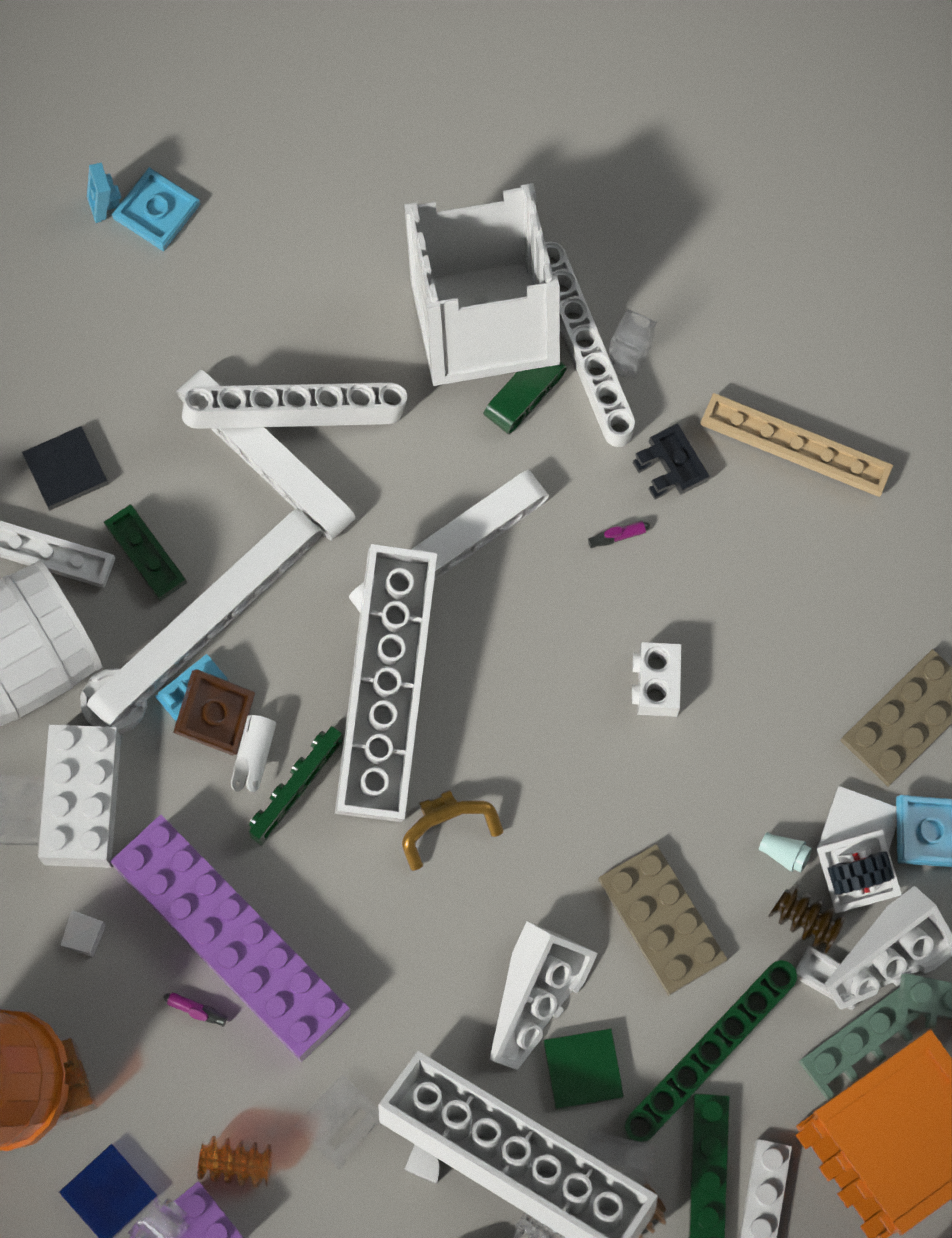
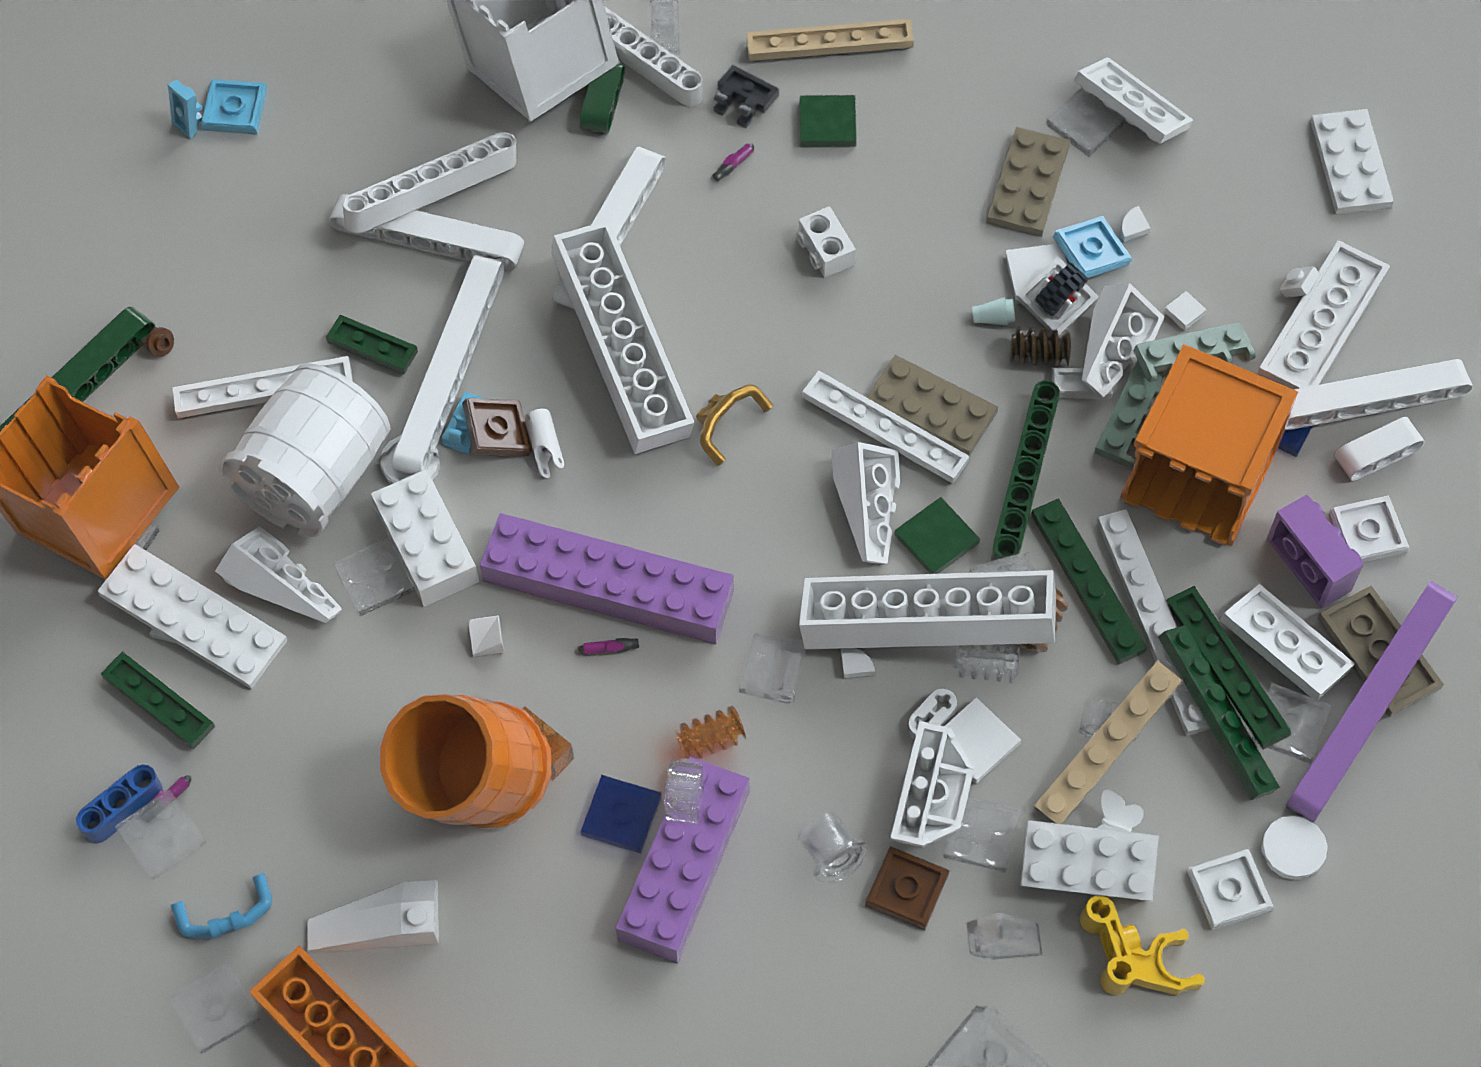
camera: 25 degrees left, 10 degrees down
(65, 468) = (270, 317): black tile -> none
(303, 774) = (589, 458): dark green plate -> none
(600, 920) = (885, 427): none -> white plate
(741, 537) = (827, 121): none -> dark green tile

